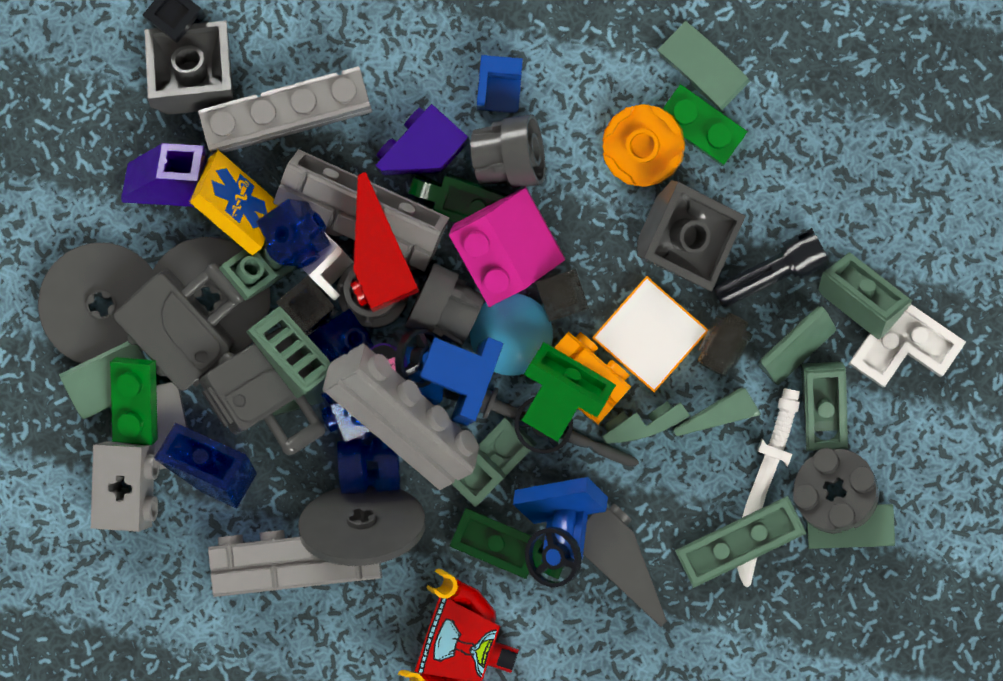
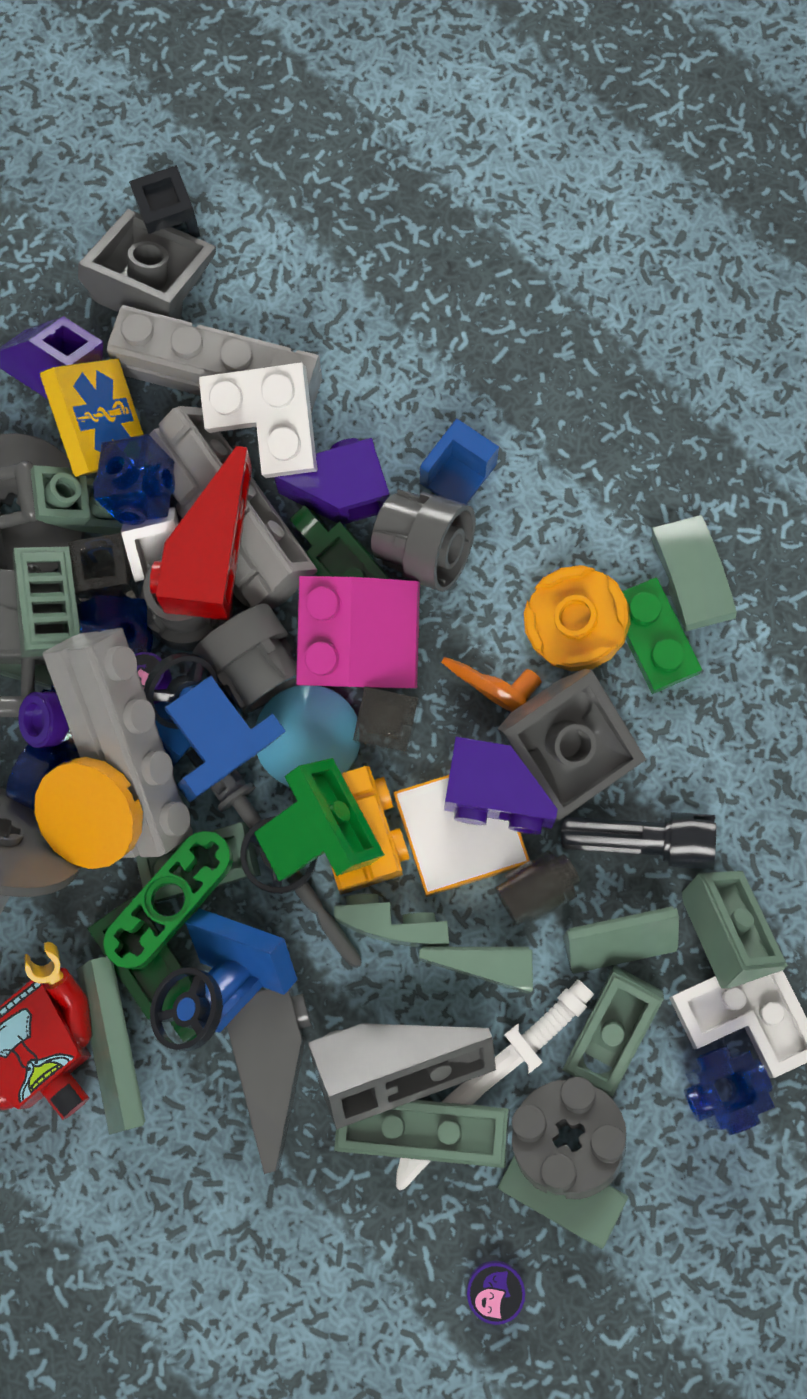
camera: 30 degrees right, 10 degrees down
(339, 430) = (42, 720): none -> dark purple tile
(356, 122) = (272, 401): none -> white plate
(410, 473) = (88, 813): none -> light orange tile
(507, 467) = (150, 940): none -> green beam
(513, 610) = (111, 1046): none -> sand green tile
(616, 226) = (495, 689): none -> orange bar
(658, 293) = (496, 784): none -> dark purple slope
(696, 515) = (390, 1065): none -> slope
(844, 611) = (495, 1292): none -> tile
(933, 401) = (749, 1090): none -> clear blue brick

